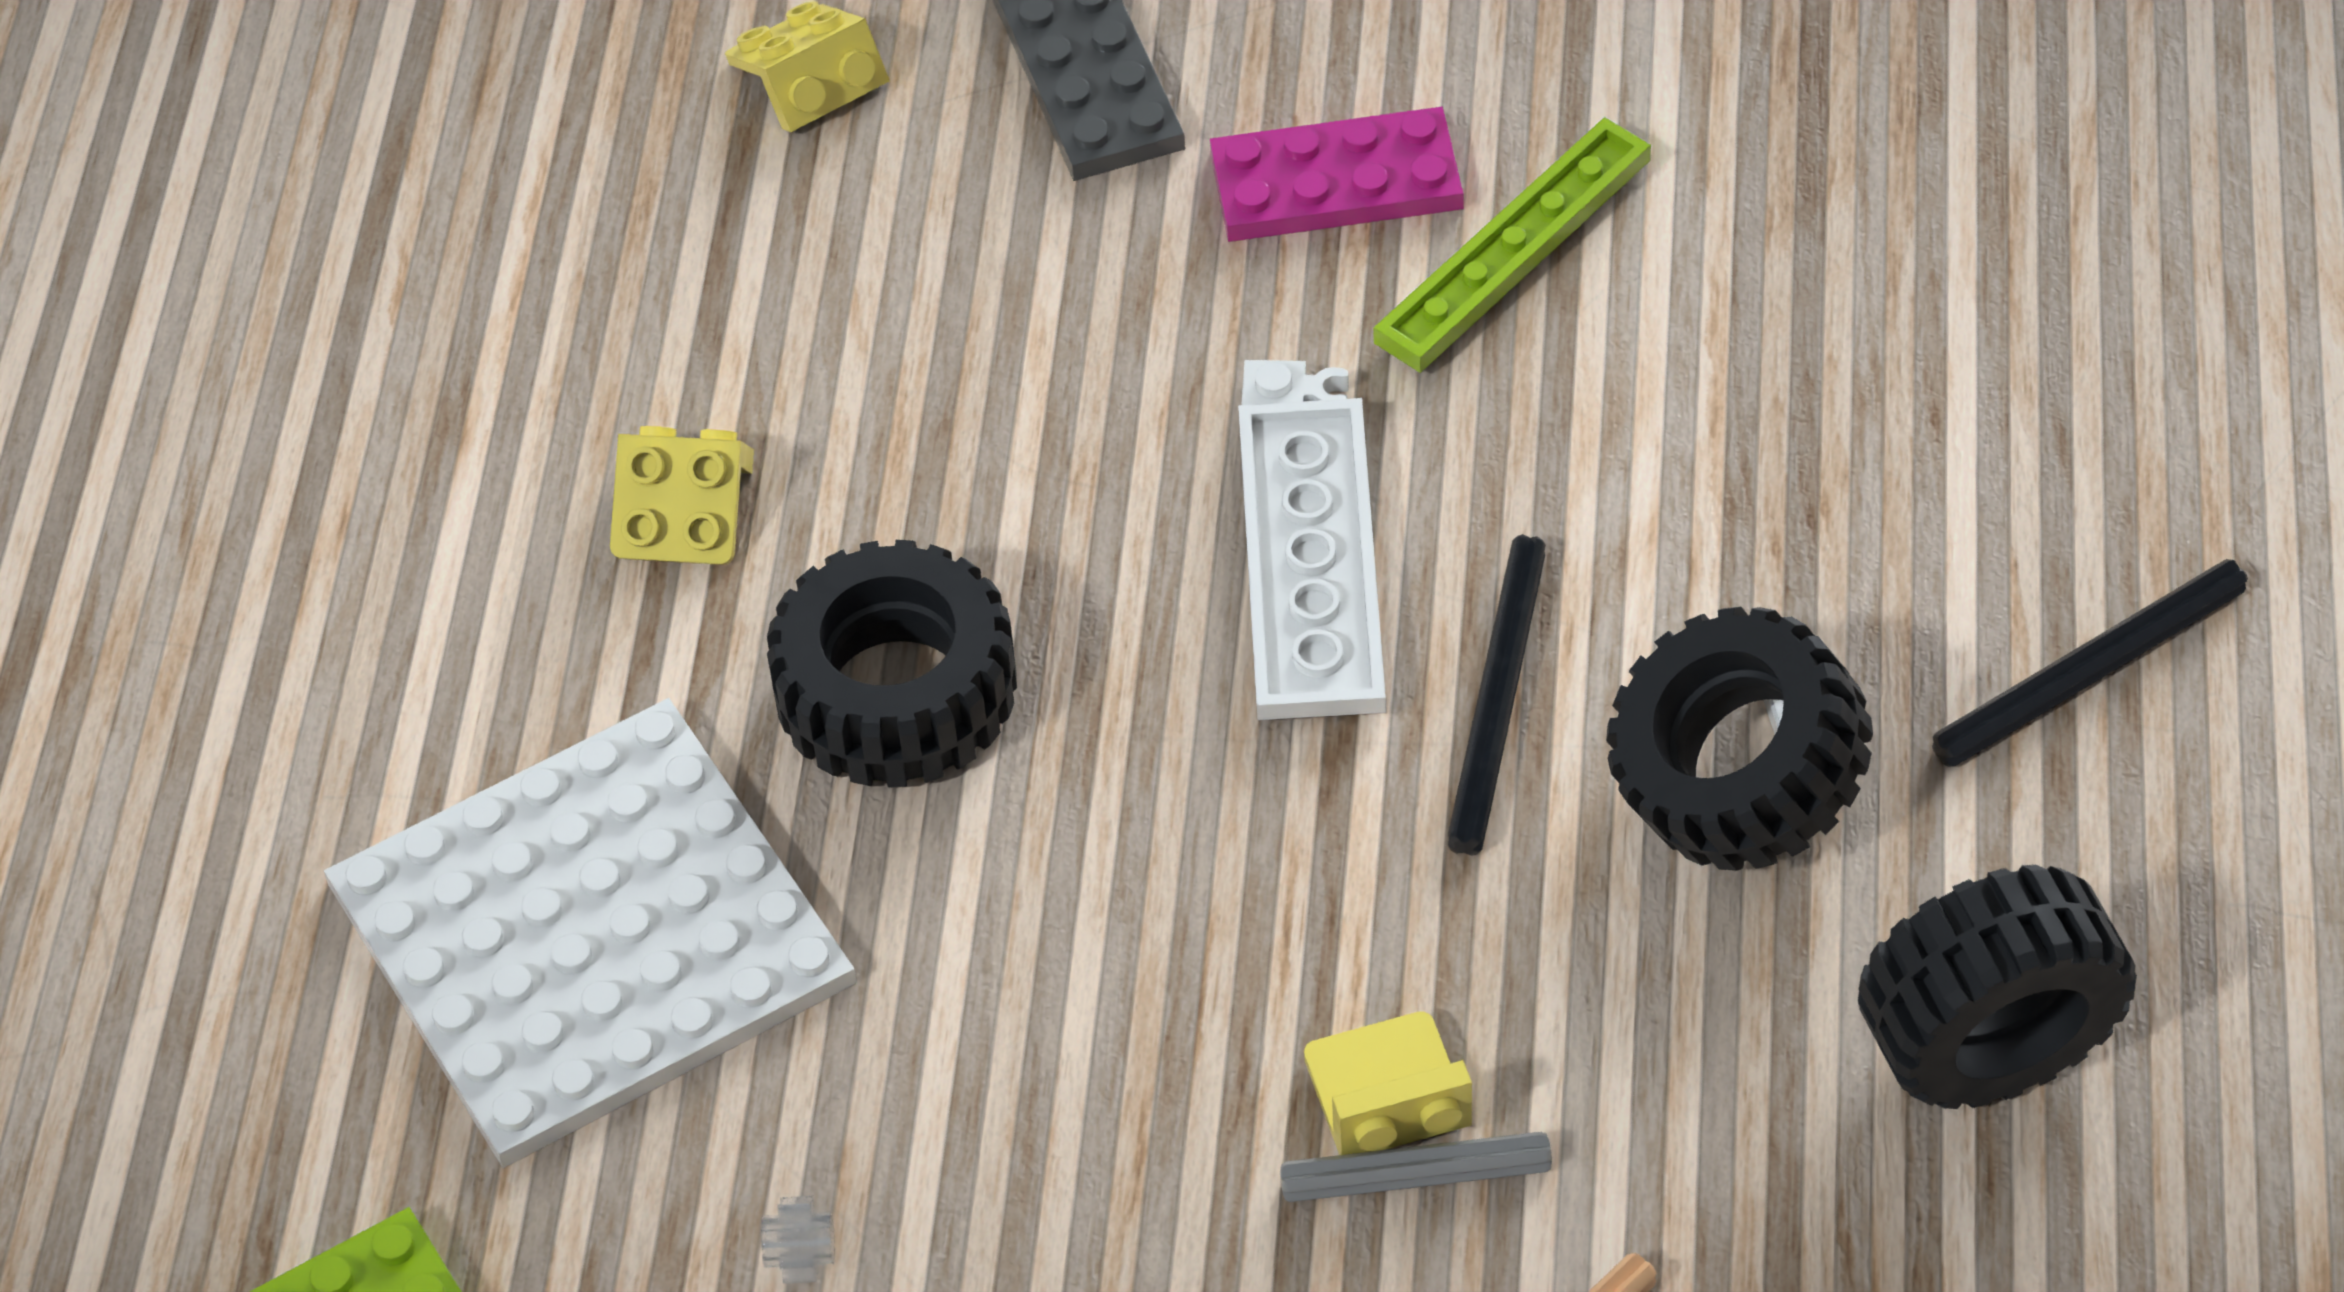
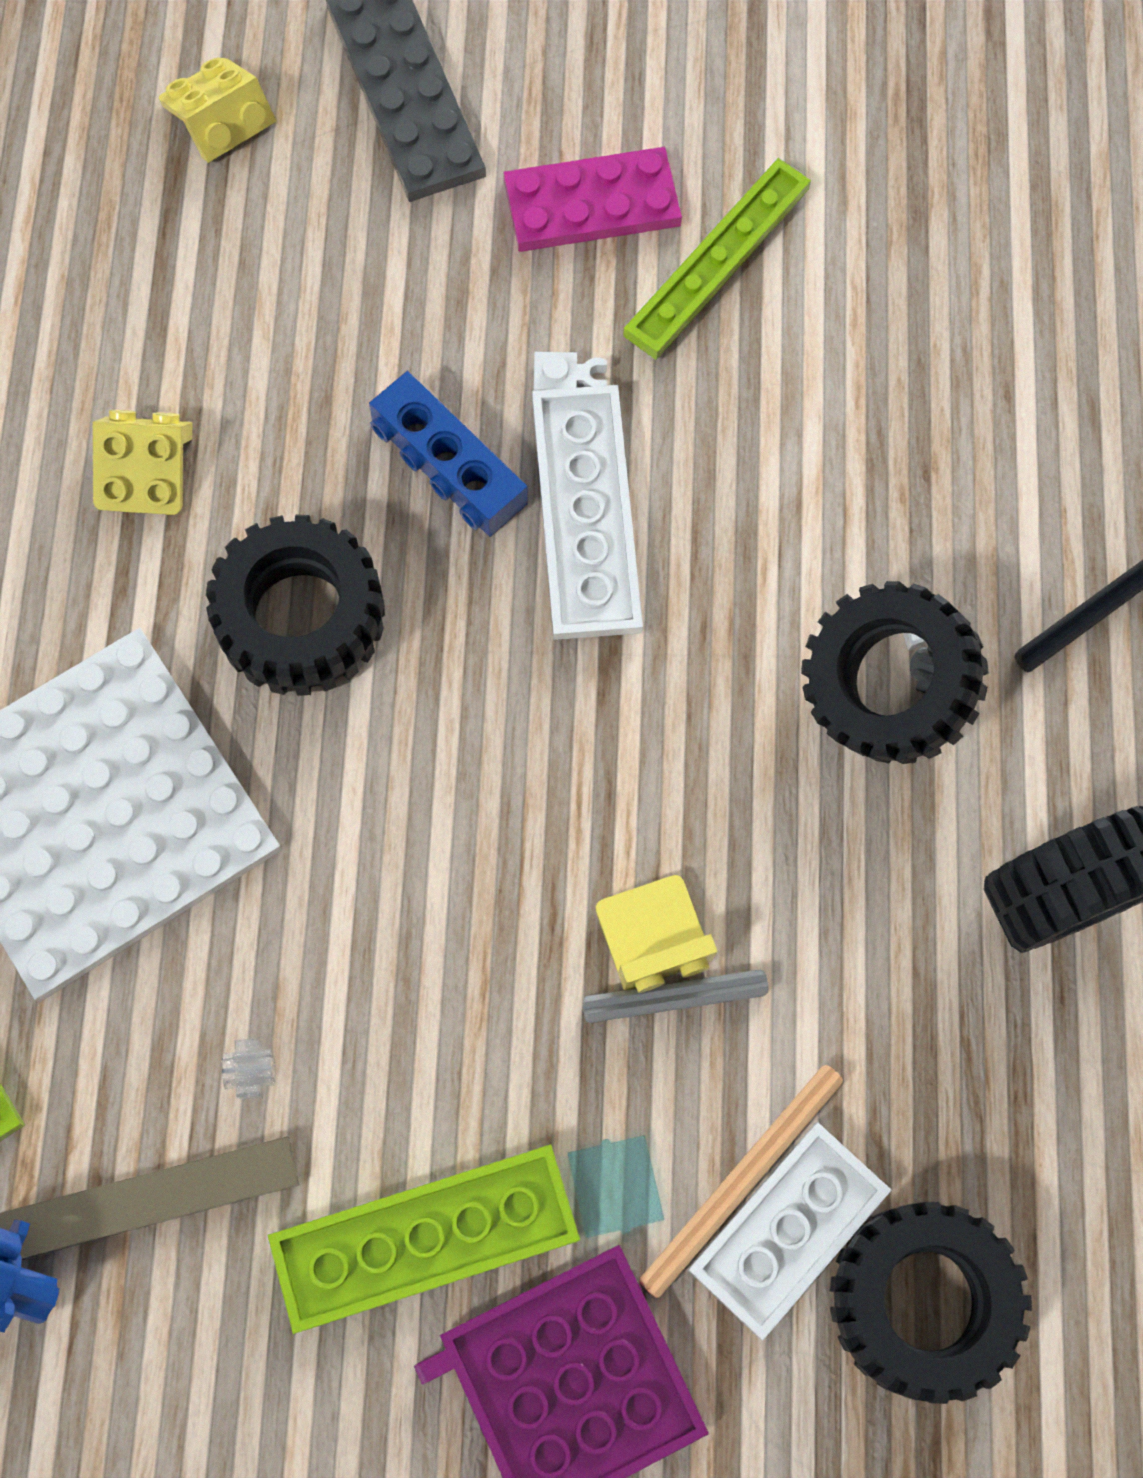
camera: 10 degrees left, 20 degrees up
(1116, 485) = (410, 403): none -> blue brick
(1496, 696) = (718, 620): black axle -> none

